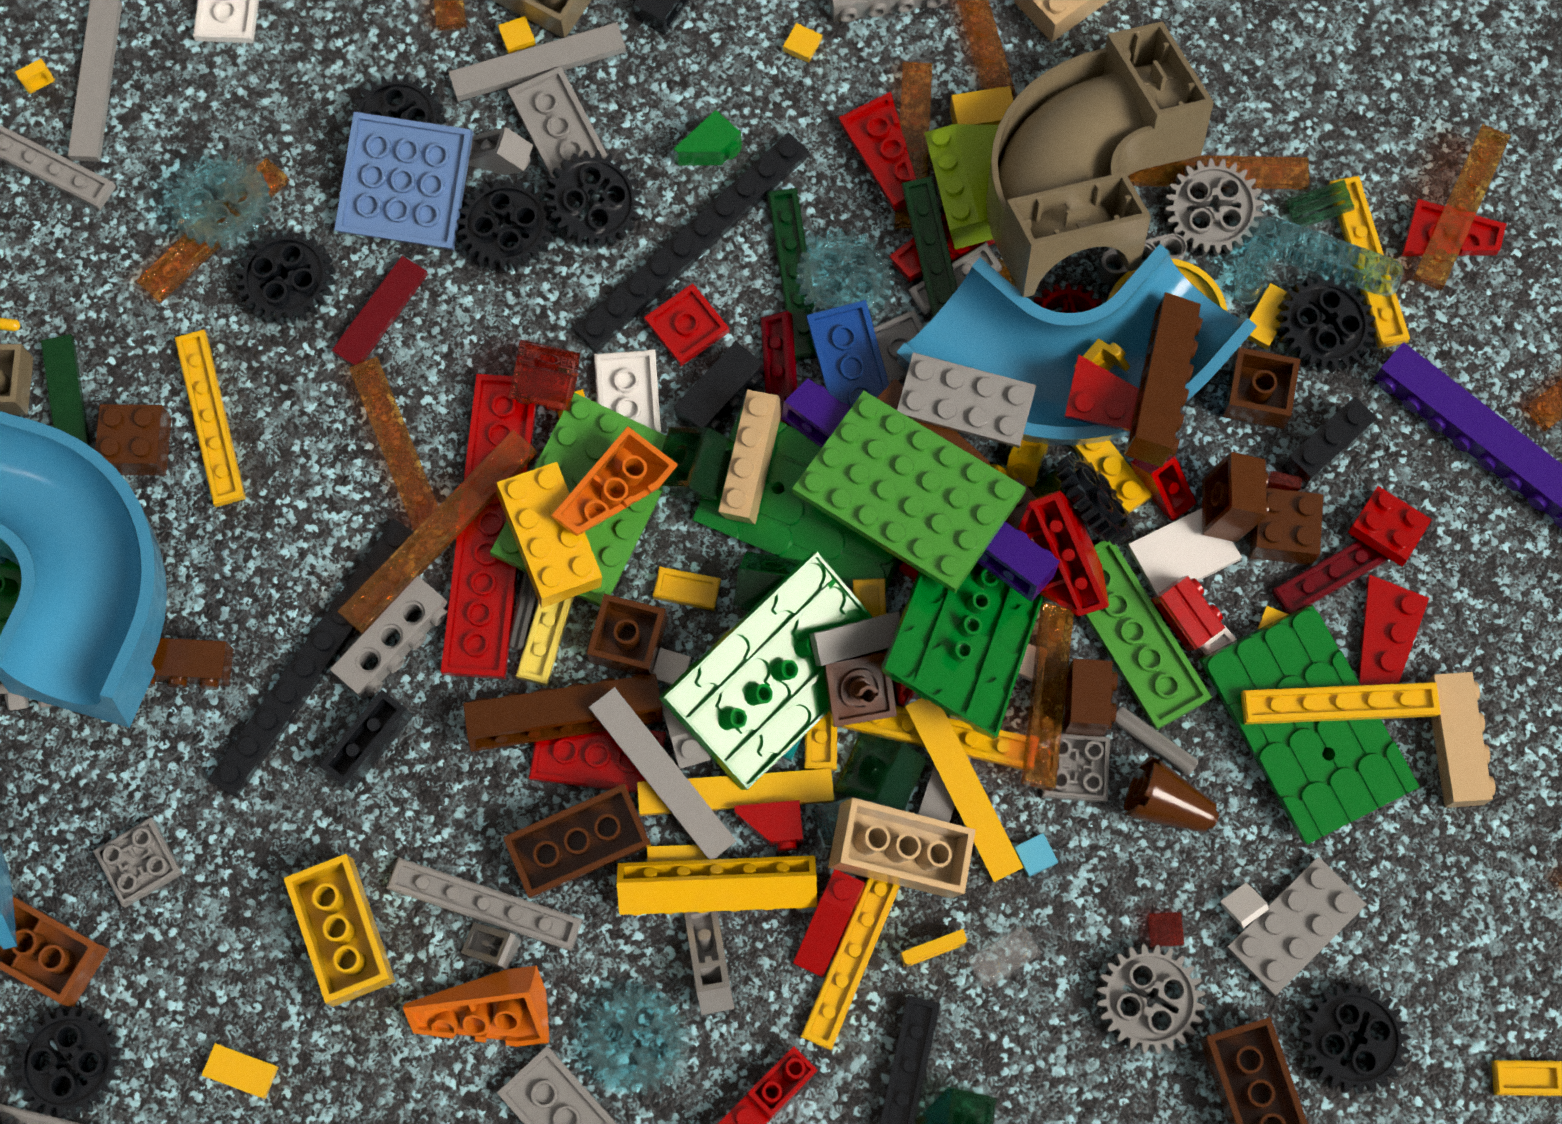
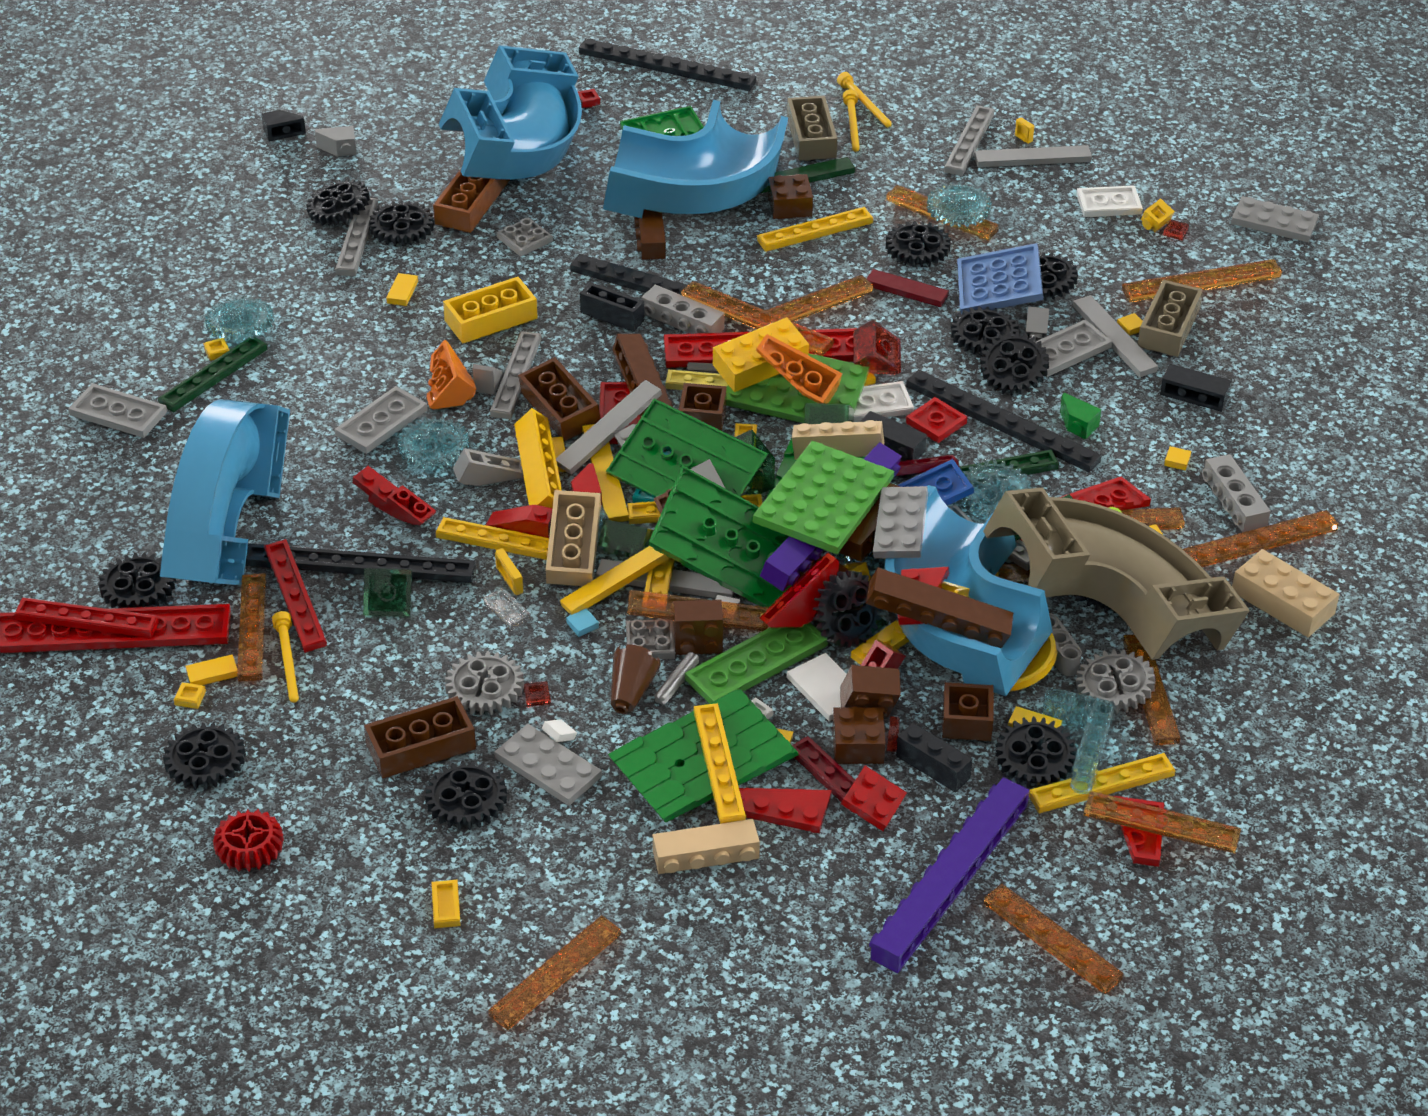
camera: 80 degrees right, 30 degrees down
(1189, 612) = (776, 681): red brick -> none
(1317, 194) = (1144, 744): clear green tile -> none

